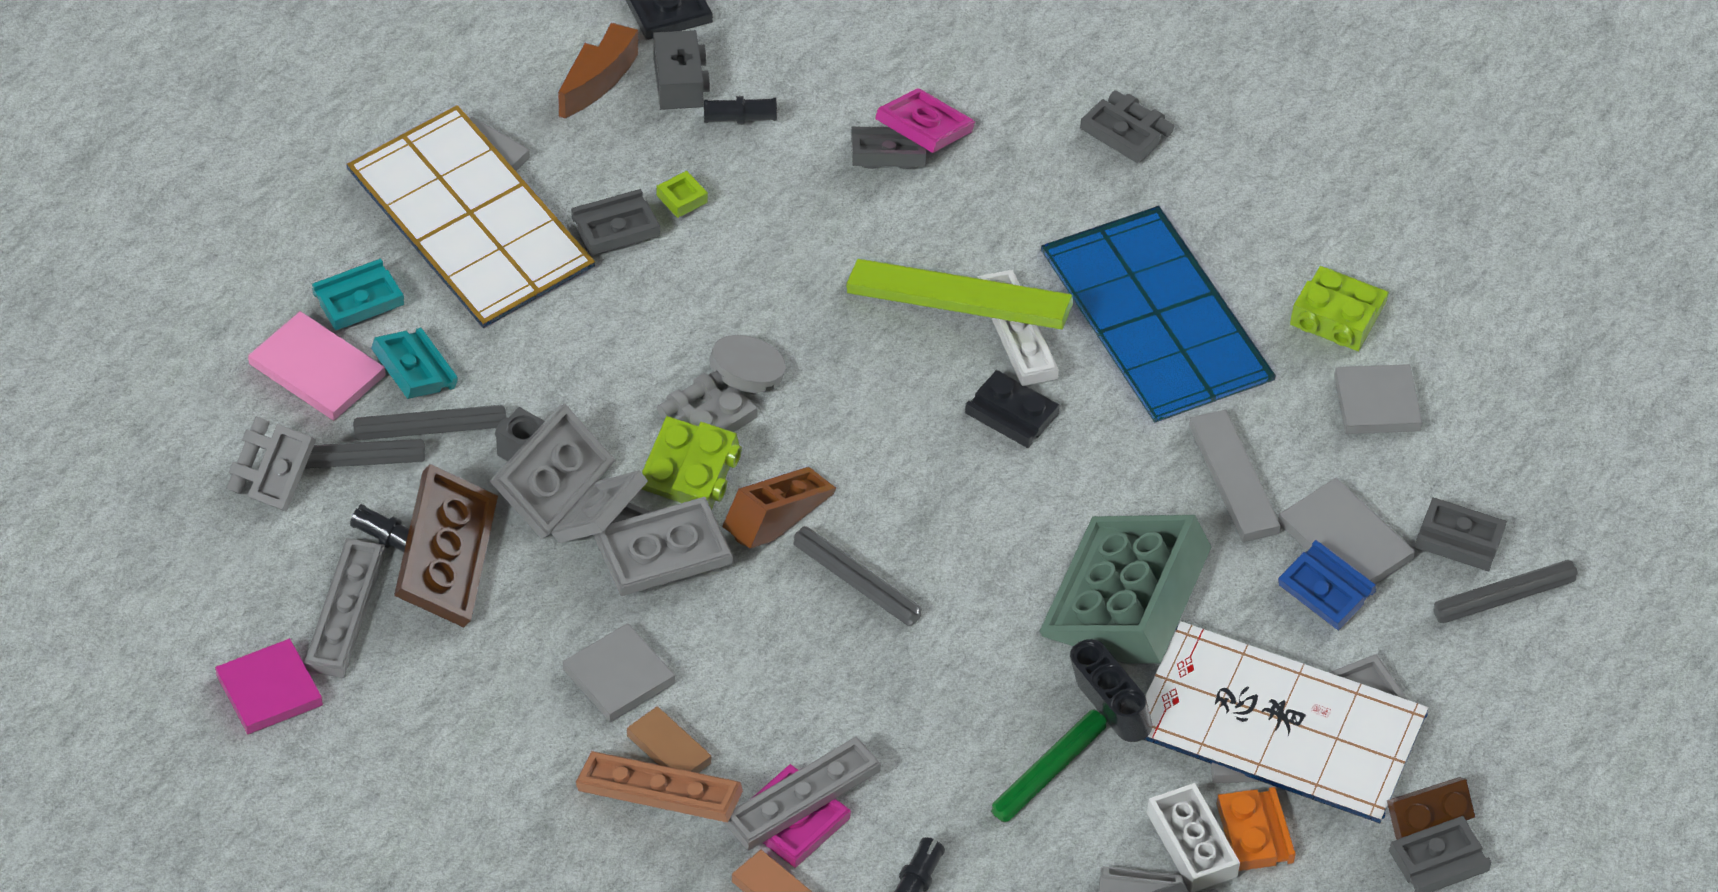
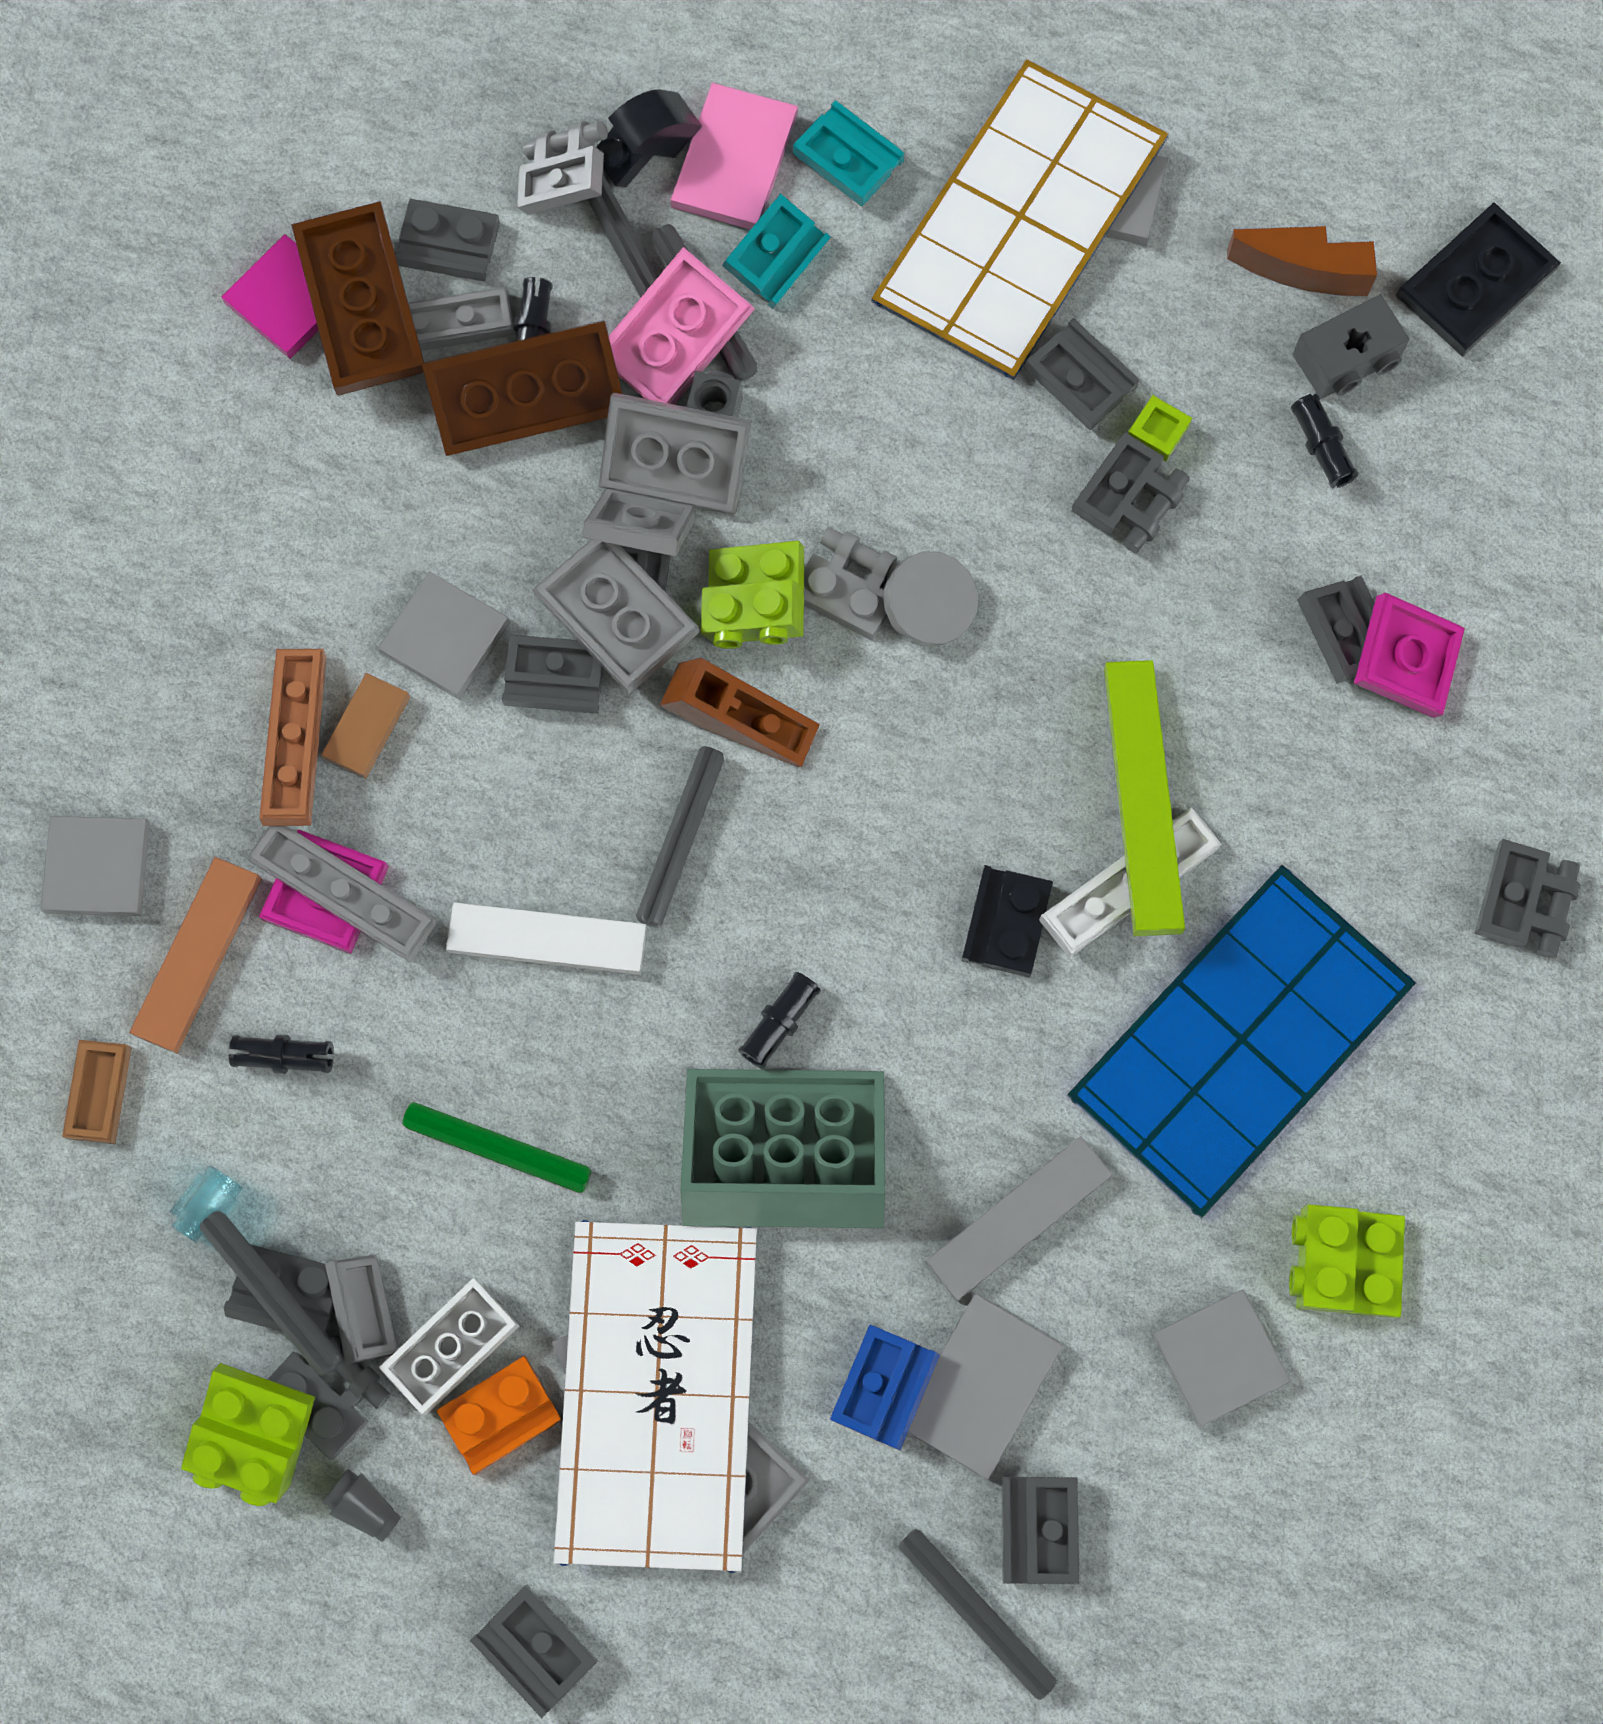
camera: 75 degrees right, 25 degrees up
(273, 399) = (644, 128): none -> black brick
(280, 567) = (447, 239): none -> dark grey plate
(309, 625) = (358, 298): none -> reddish brown plate
(448, 432) = (676, 329): none -> bright pink tile
(689, 610) = (551, 675): none -> dark grey plate
(716, 234) = (1118, 484): none -> dark grey plate
(898, 684) = (546, 938): none -> white tile
(1028, 560) = (779, 1020): none -> black pin
(1111, 690) = (606, 1204): black beam -> none
(1430, 807) = (596, 1619): reddish brown plate -> none

